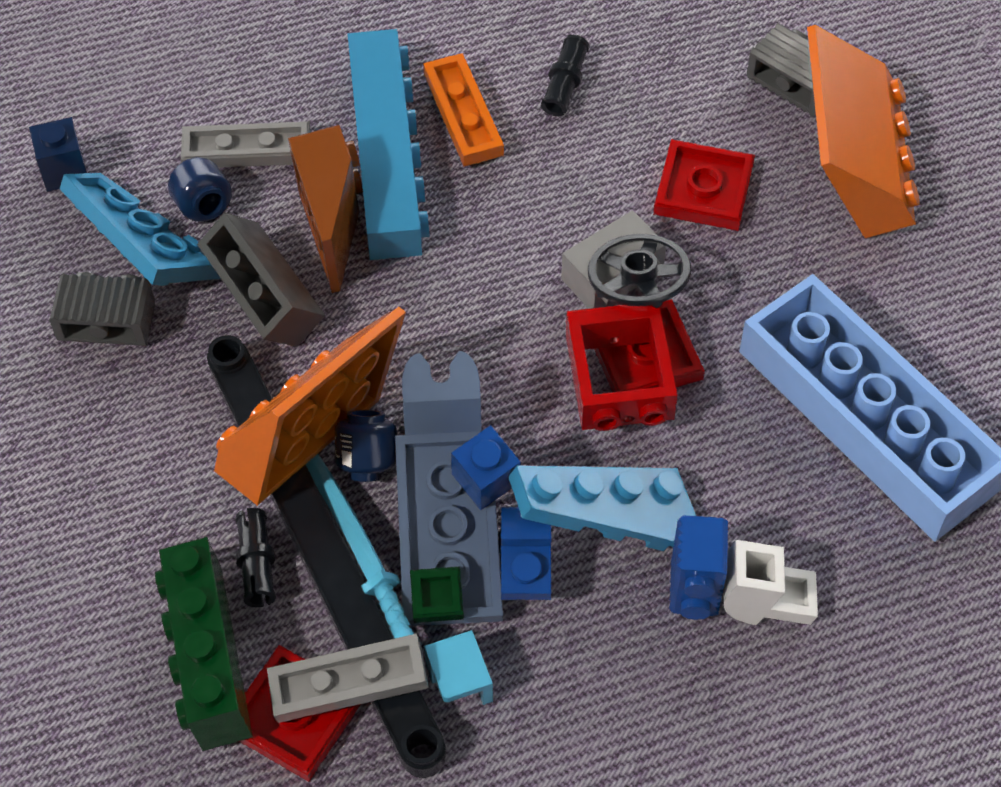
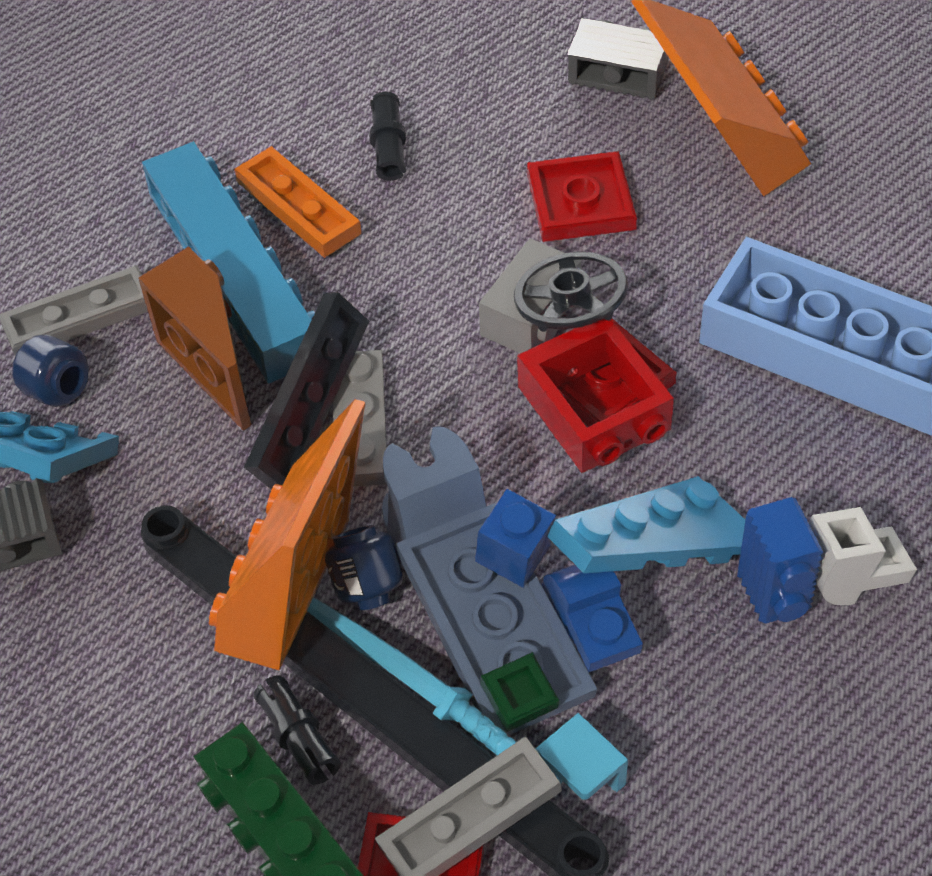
camera: 20 degrees left, 5 degrees down
(261, 280) = (166, 438): dark grey brick -> none
(390, 276) = (307, 389): none -> black plate
(430, 309) = (366, 383): none -> light grey plate

